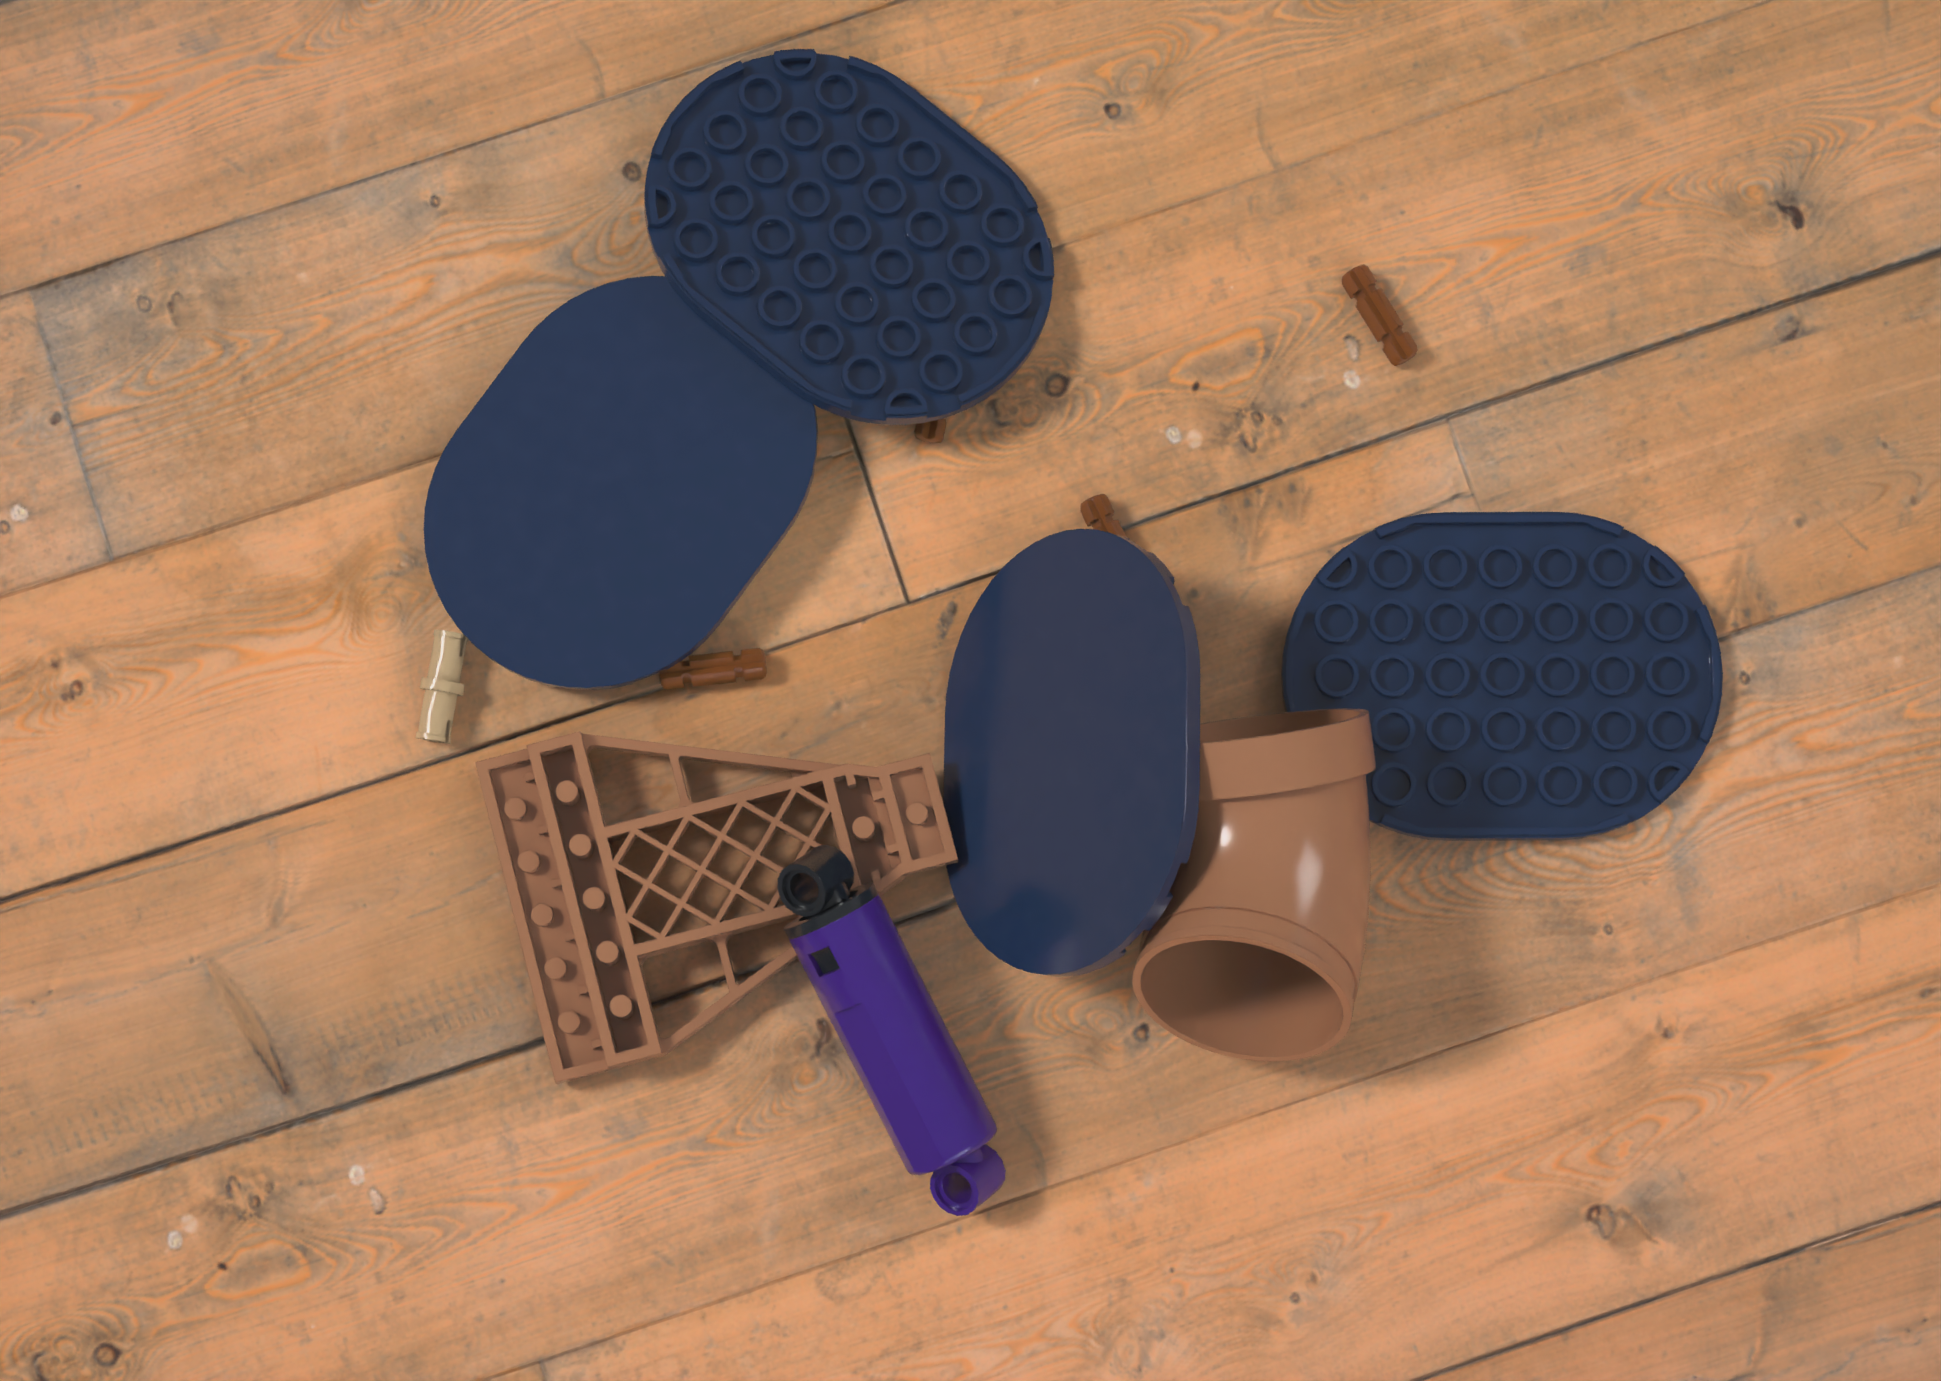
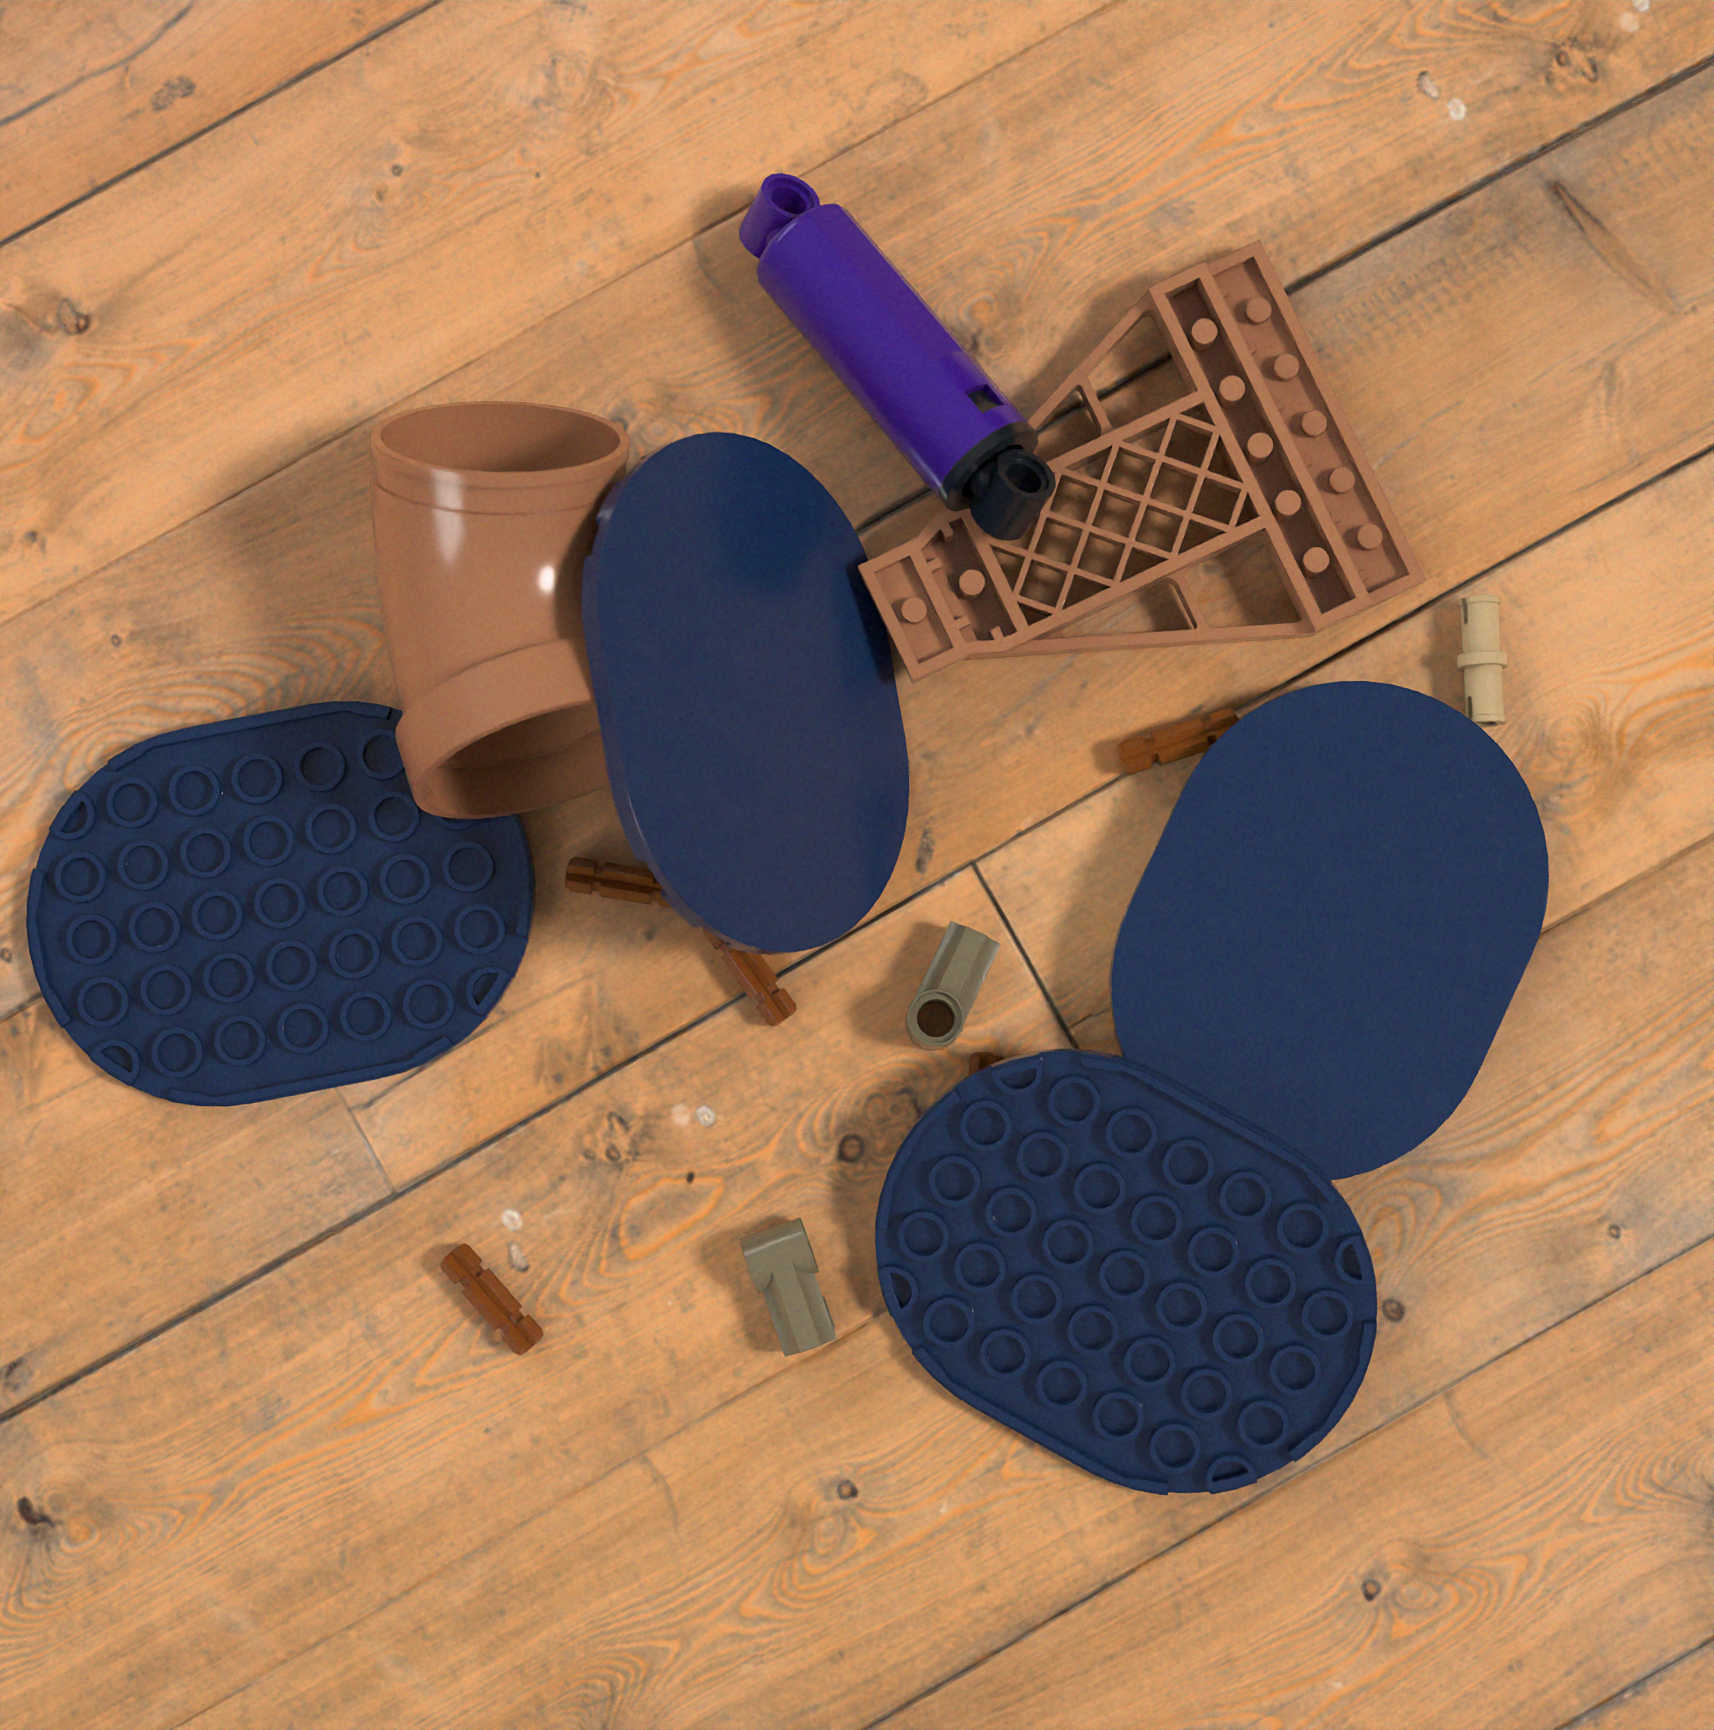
camera: 165 degrees right, 5 degrees up
(945, 501) = (952, 981): none -> dark tan piece
(1130, 291) = (785, 1273): none -> dark tan piece
(1217, 641) = (613, 881): none -> dark orange axle

